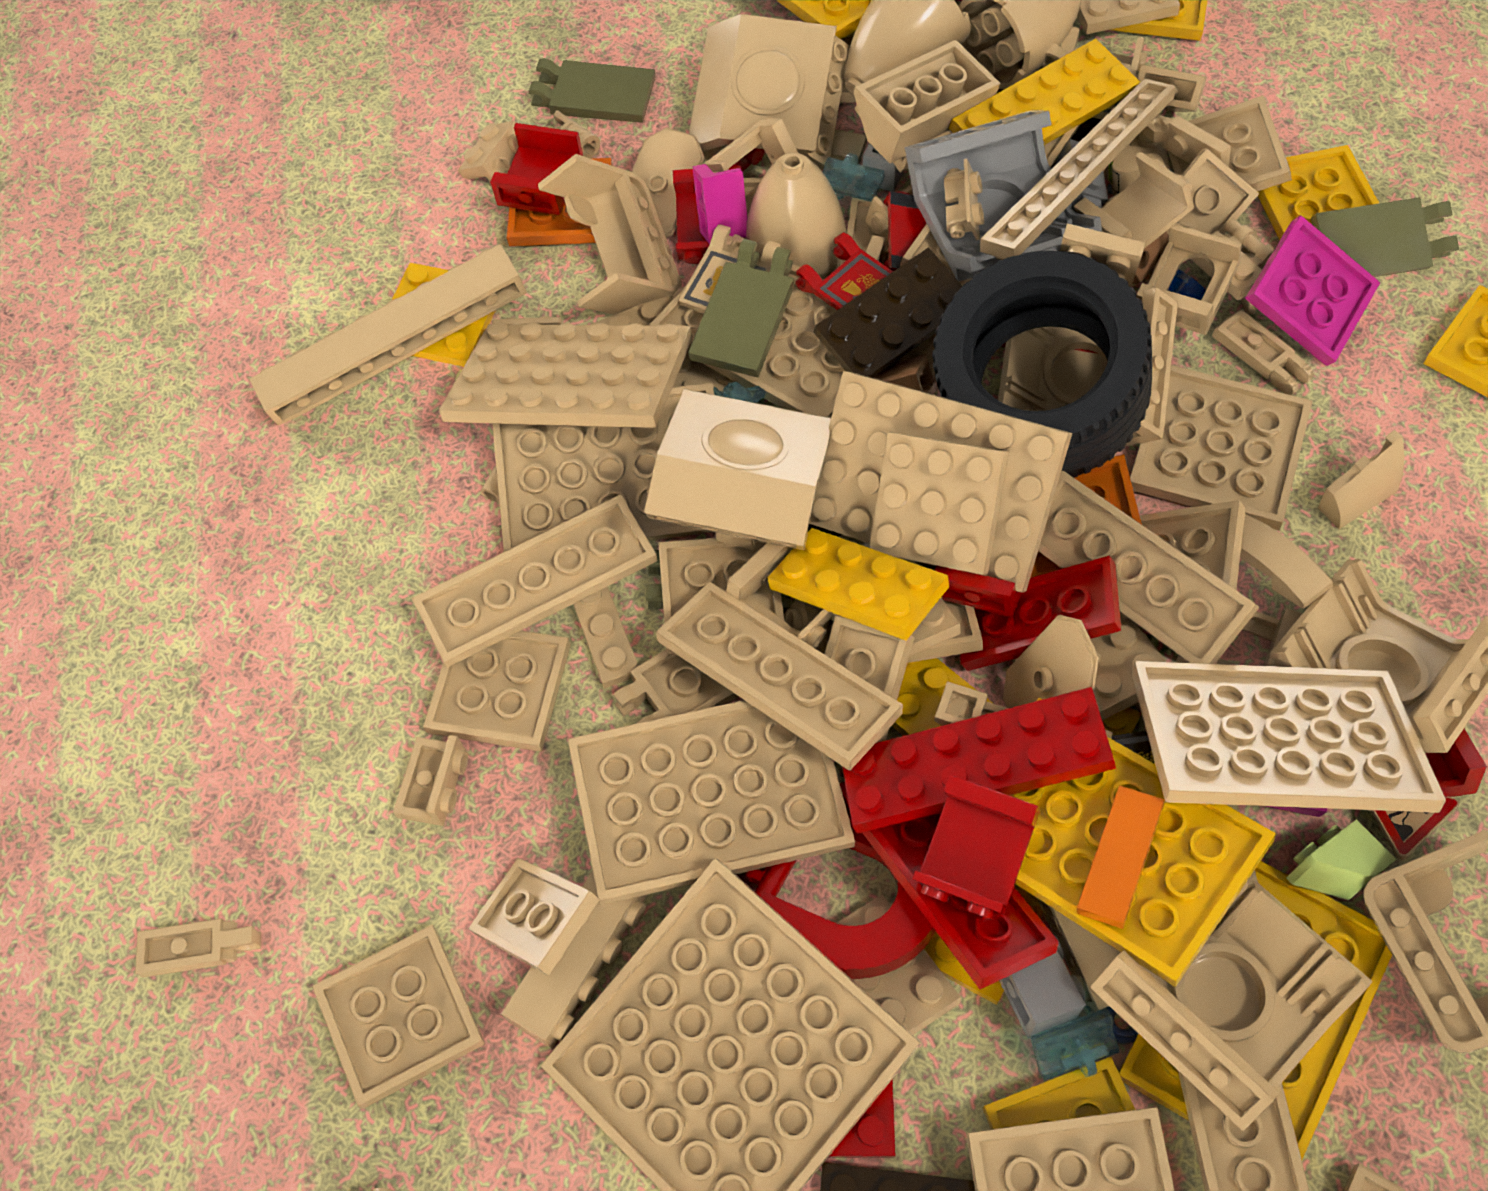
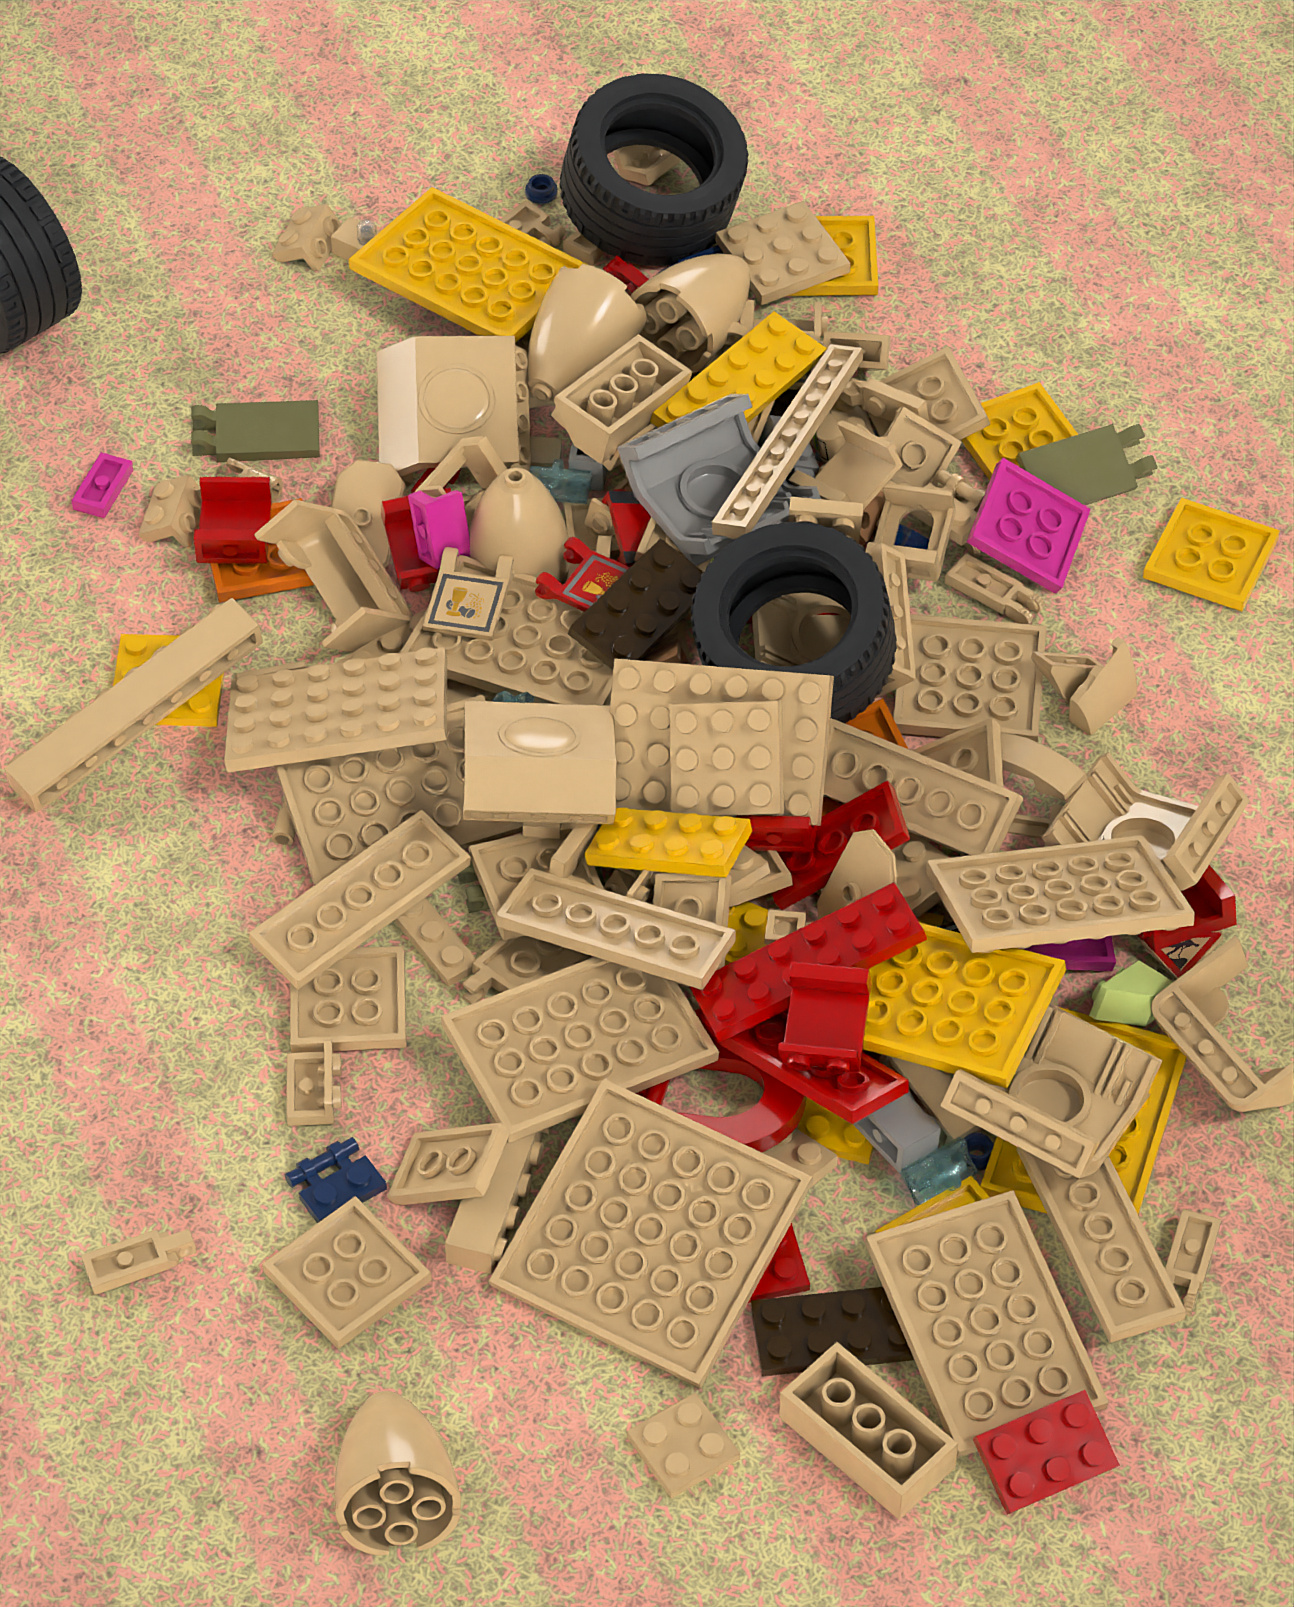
camera: 20 degrees left, 10 degrees down
(436, 904) = (351, 1180): none -> dark blue plate
(441, 120) = (102, 485): none -> dark pink plate
(744, 312) = (494, 626): olive tile -> none
(963, 187) = (690, 501): tan hinge -> none
(1120, 857) = (944, 1002): orange tile -> none
(1326, 455) = (1064, 671): none -> tan slope

